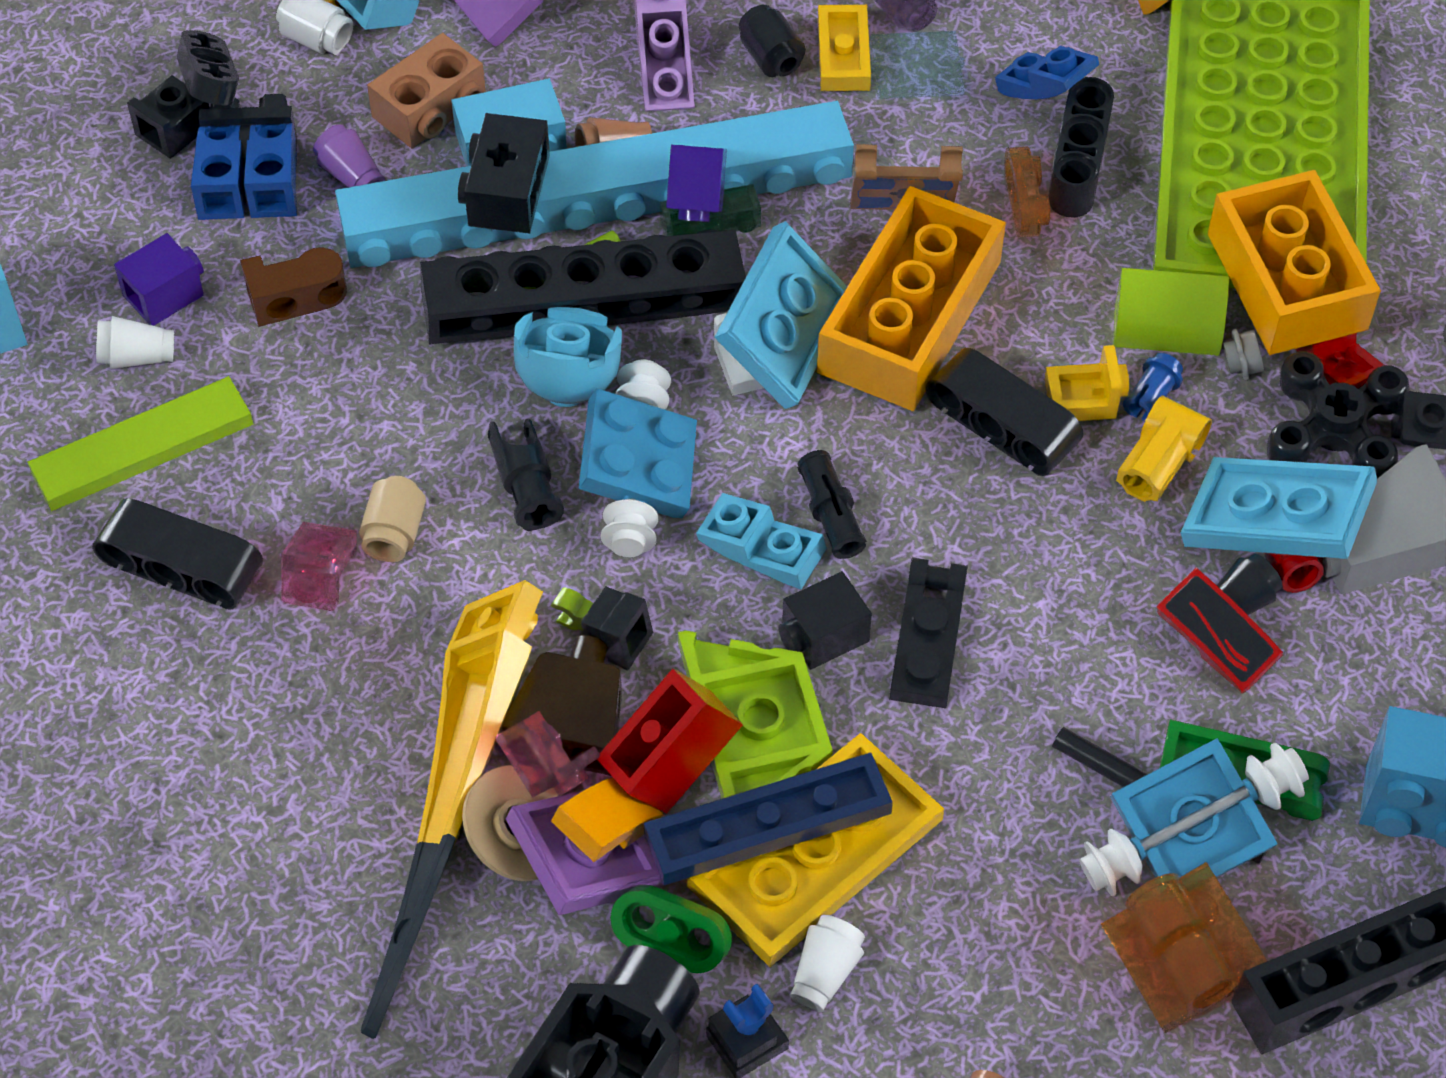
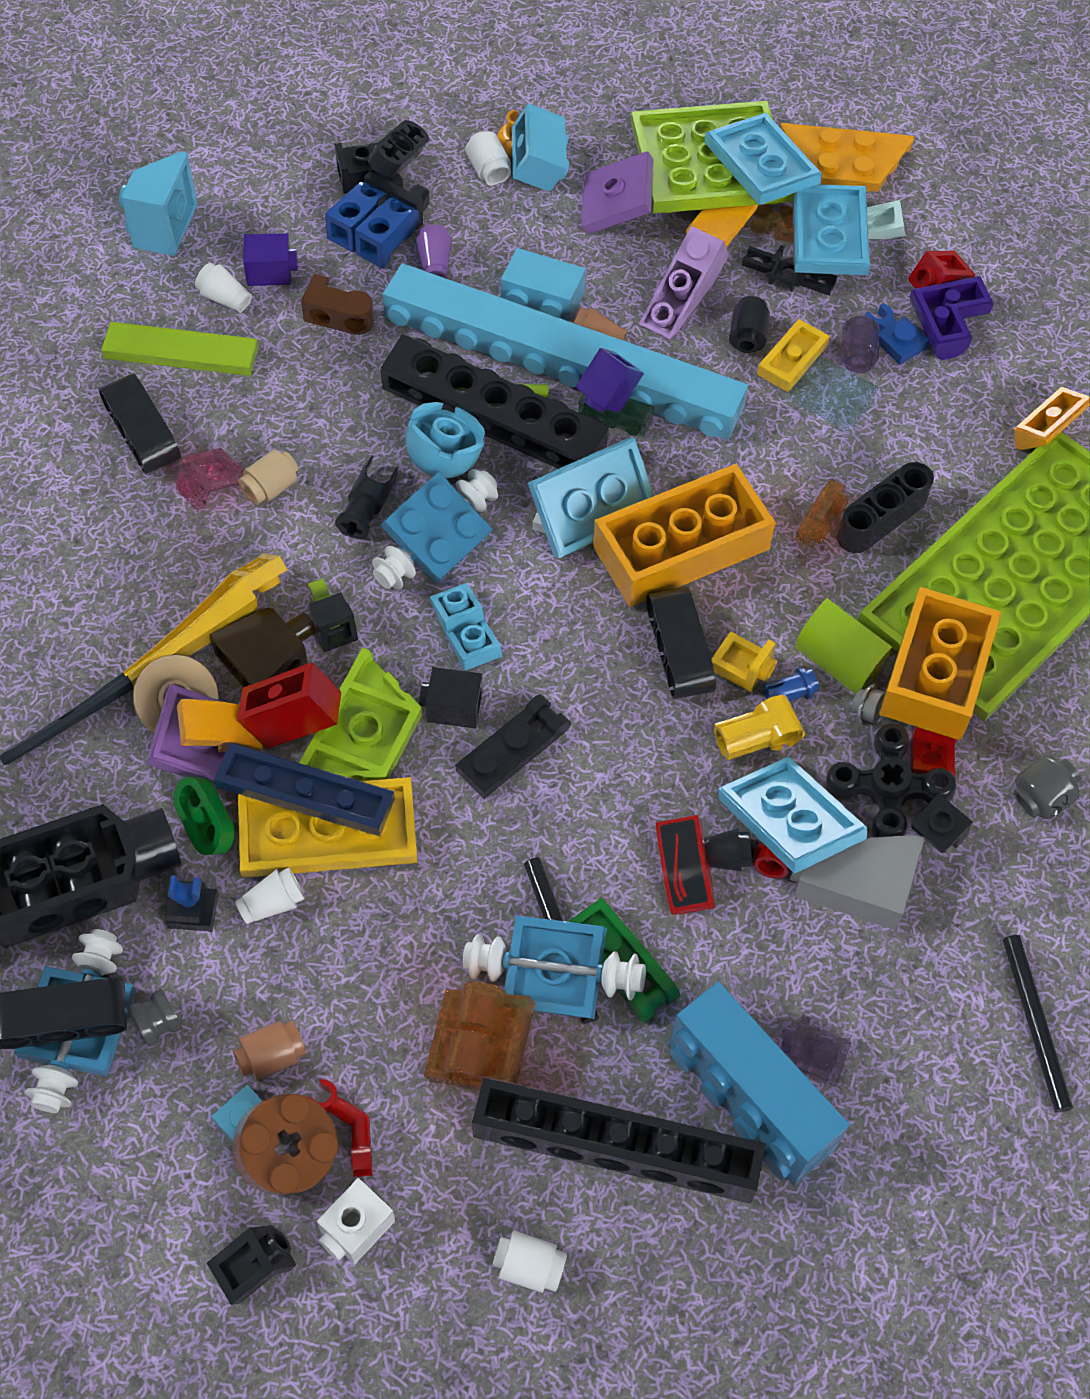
camera: 35 degrees right, 5 degrees up
(418, 91) = (511, 228): nougat brick -> none
(505, 173) = (499, 309): black brick -> none
(539, 758) = (209, 661): clear pink bracket -> none
(831, 504) = (524, 631): black pin -> none
(885, 185) = (723, 454): medium nougat flag -> none
(1045, 77) = (902, 445): blue slope -> none

